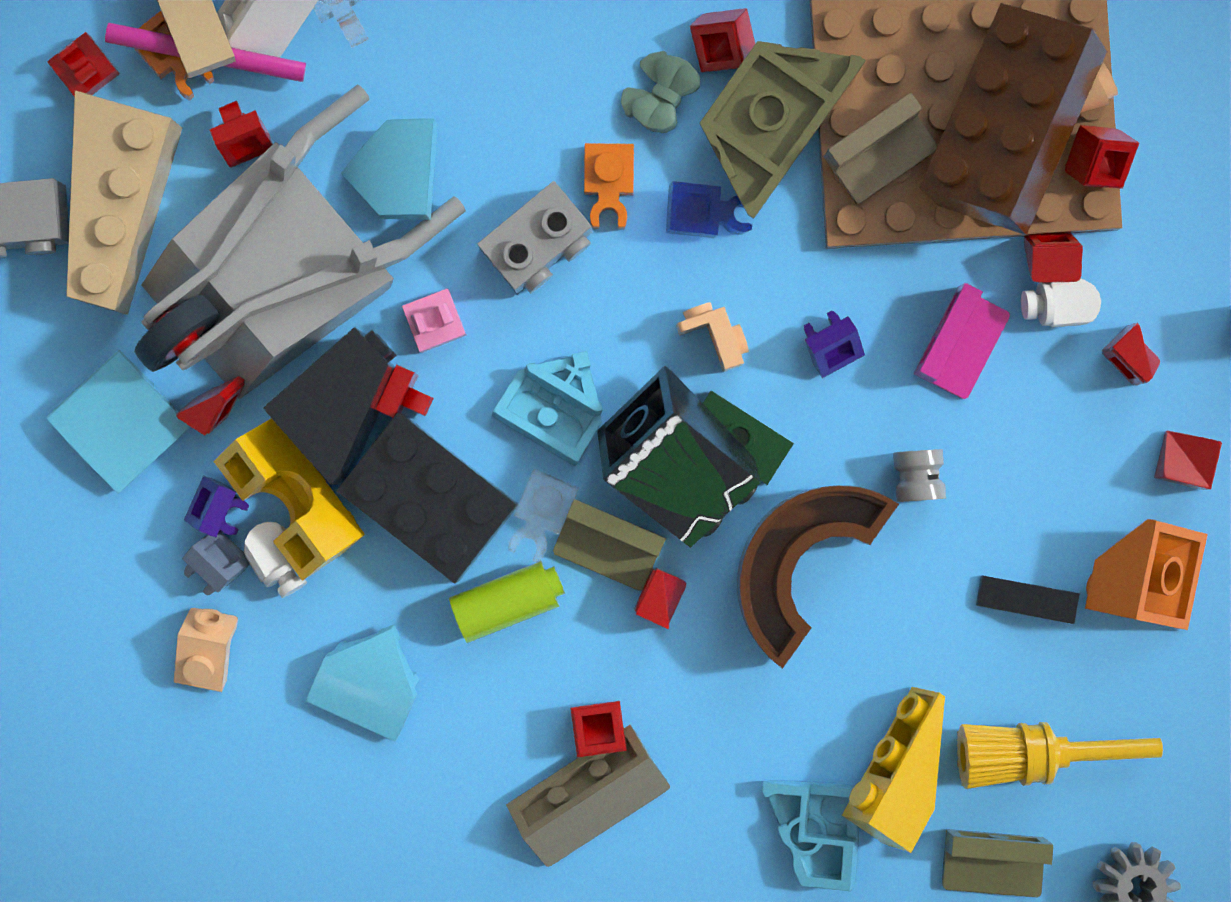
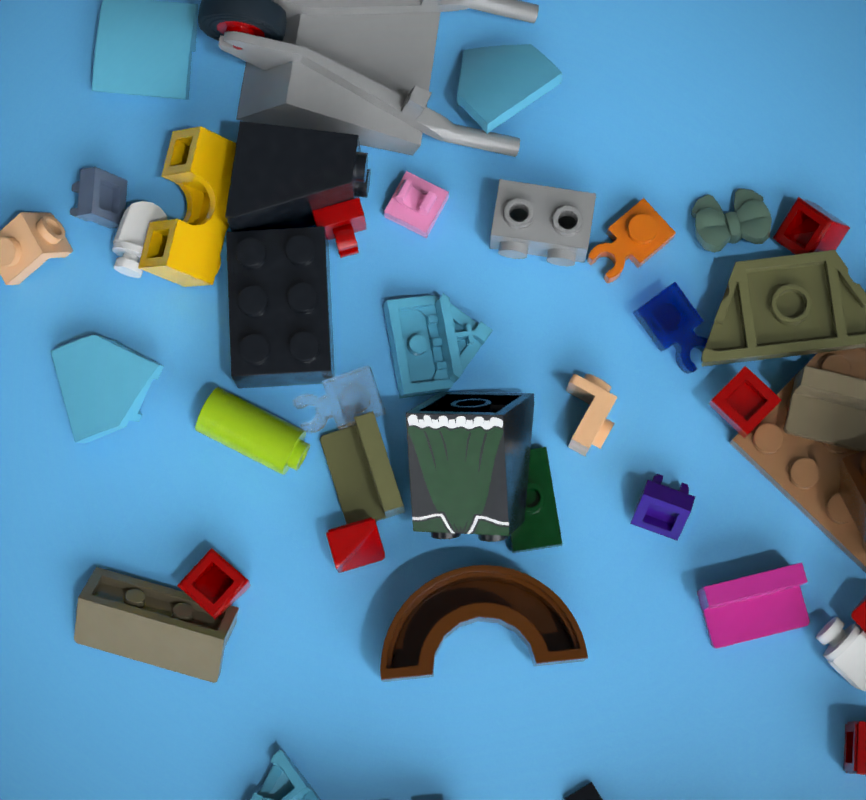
camera: 50 degrees right, 10 degrees down
(210, 508) = (139, 161): dark purple tile -> none
(211, 407) = (213, 101): red slope -> none
(810, 213) = (745, 402): none -> red tile
(919, 475) = (624, 661): light grey wheel -> none

